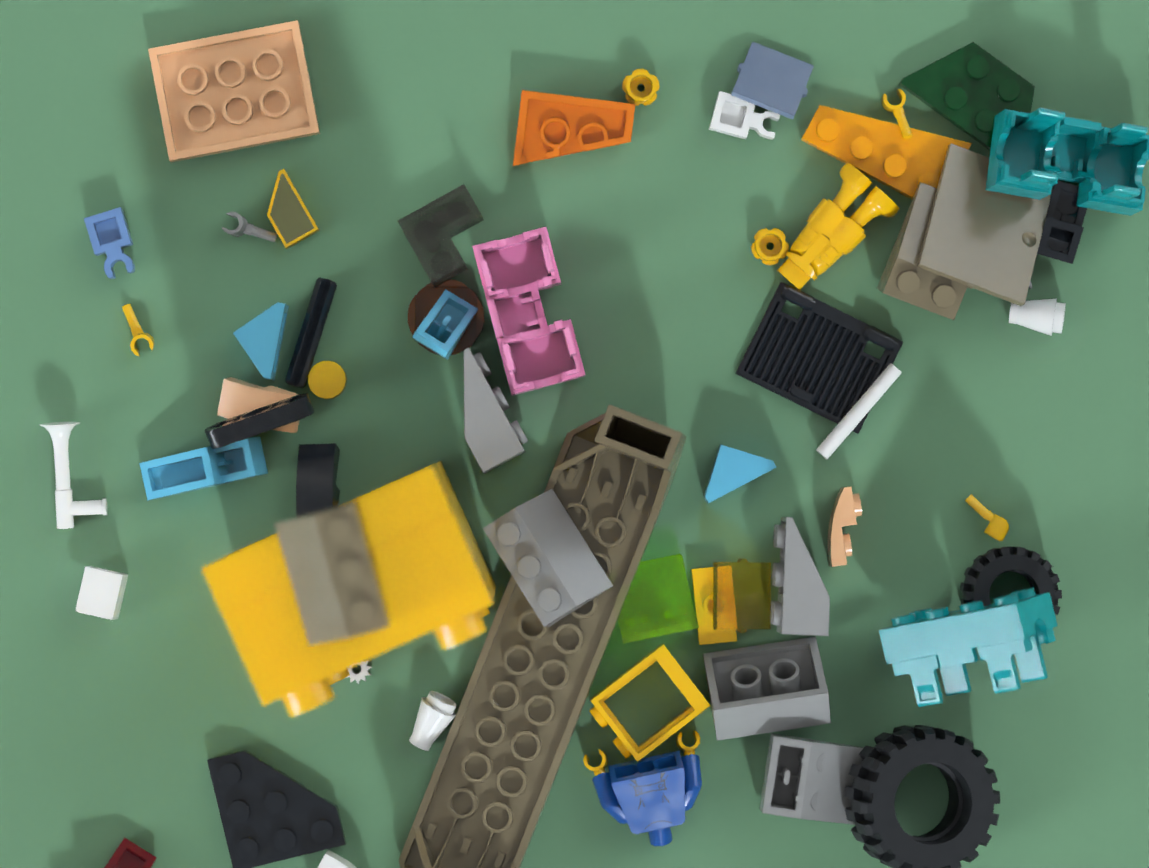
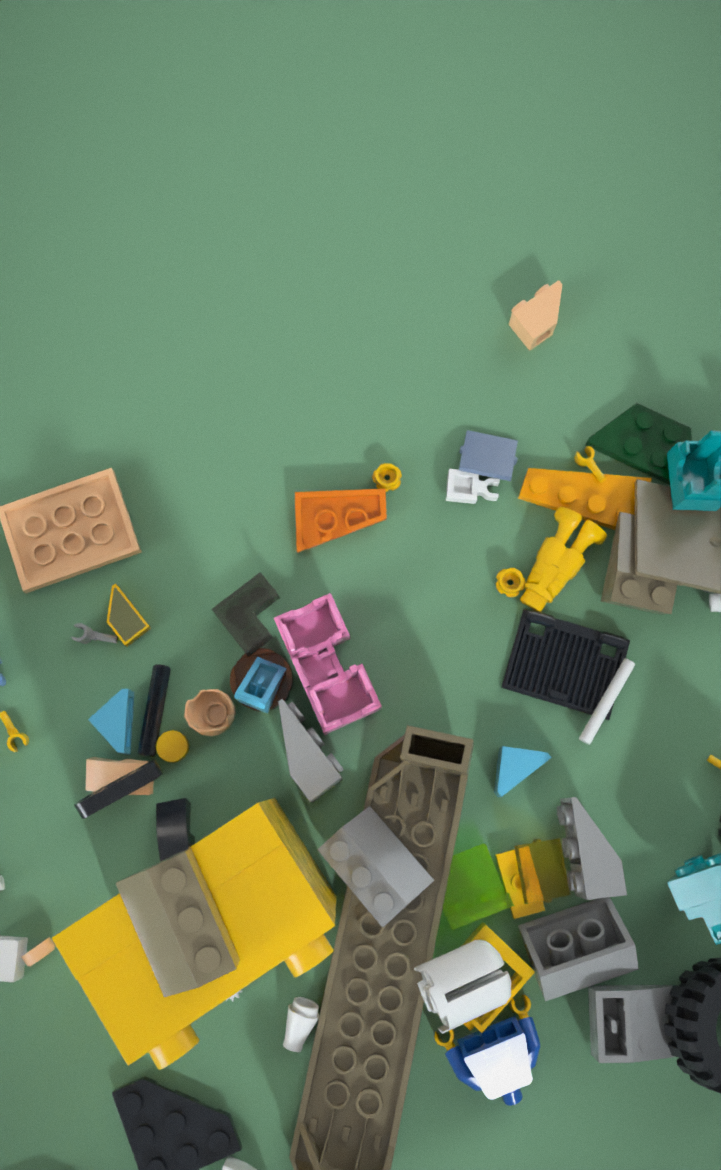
camera: 10 degrees left, 10 degrees down
(142, 592) = (38, 952): none -> light nougat tile
(203, 468) = (79, 836): medium azure slope -> none
(379, 347) = (210, 712): none -> light nougat hair
(631, 720) = (464, 983): none -> white cylinder
(844, 513) = (613, 786): light nougat slope -> none

